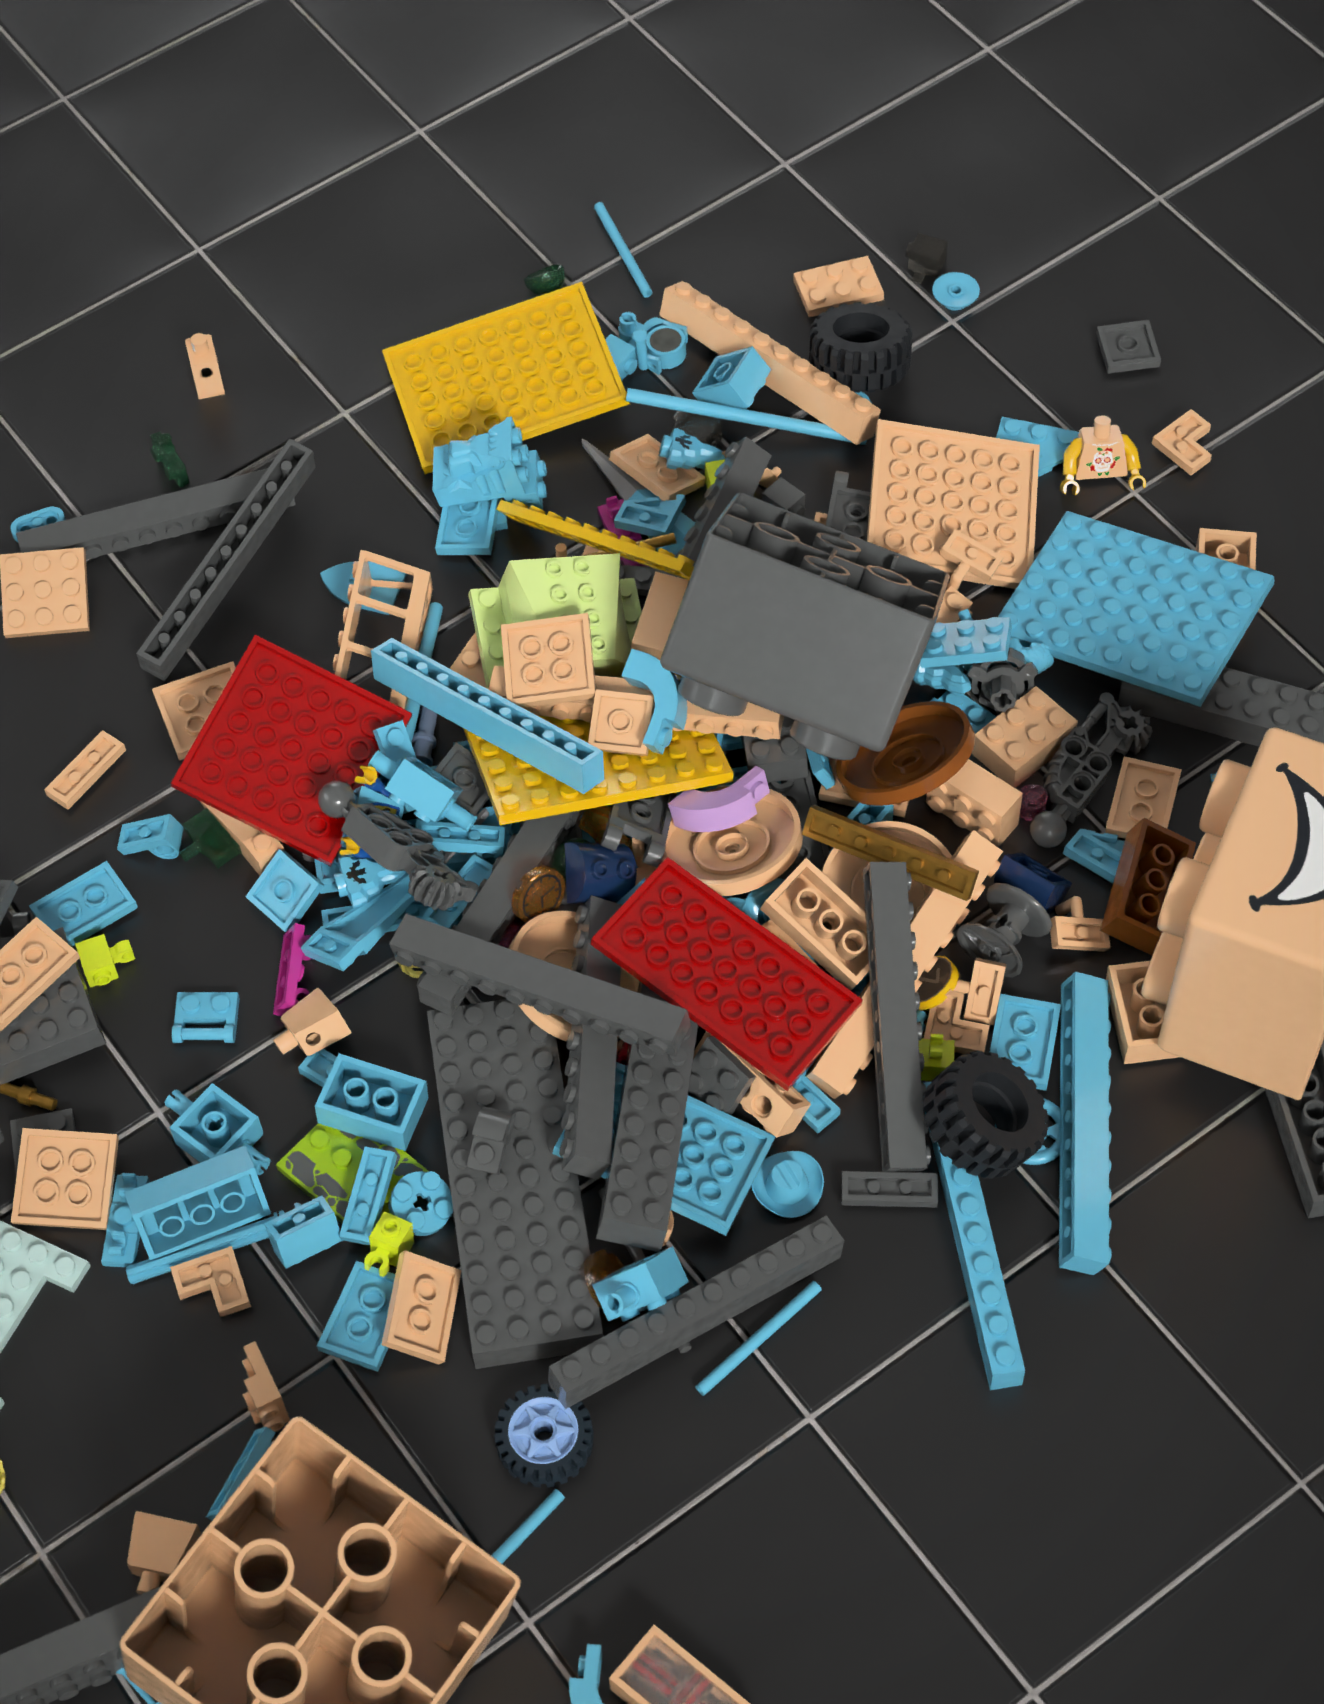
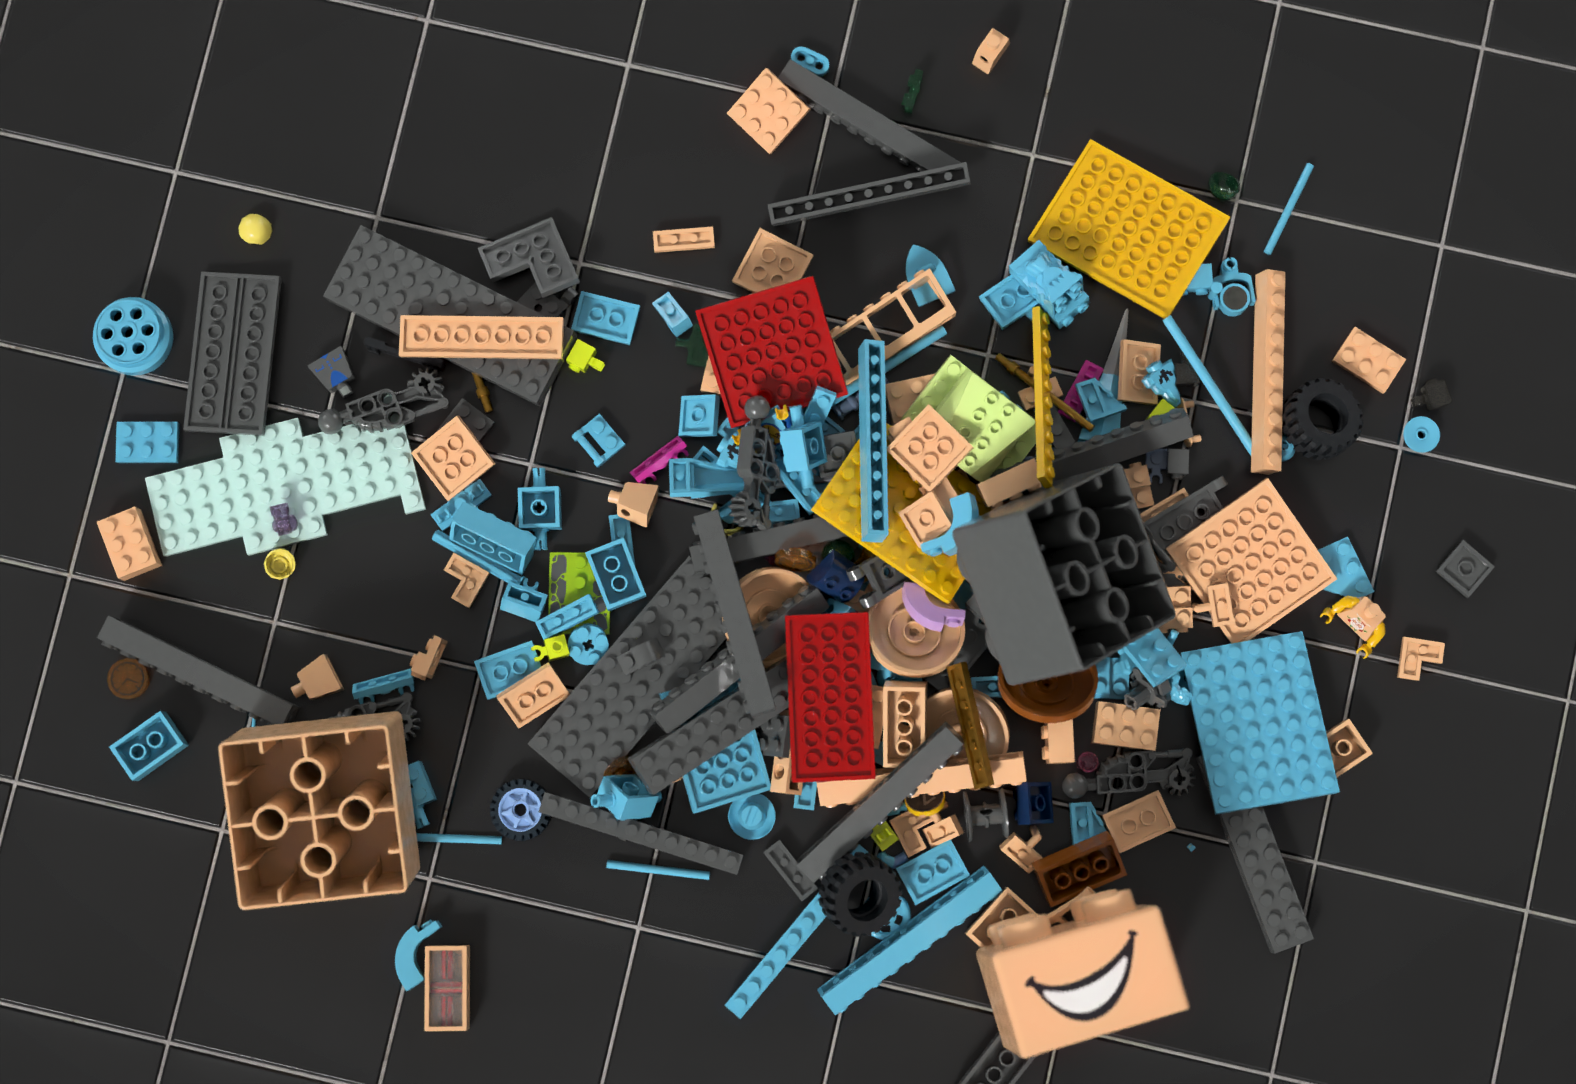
camera: 50 degrees right, 25 degrees up
(733, 379) = (1234, 364): medium azure brick -> none

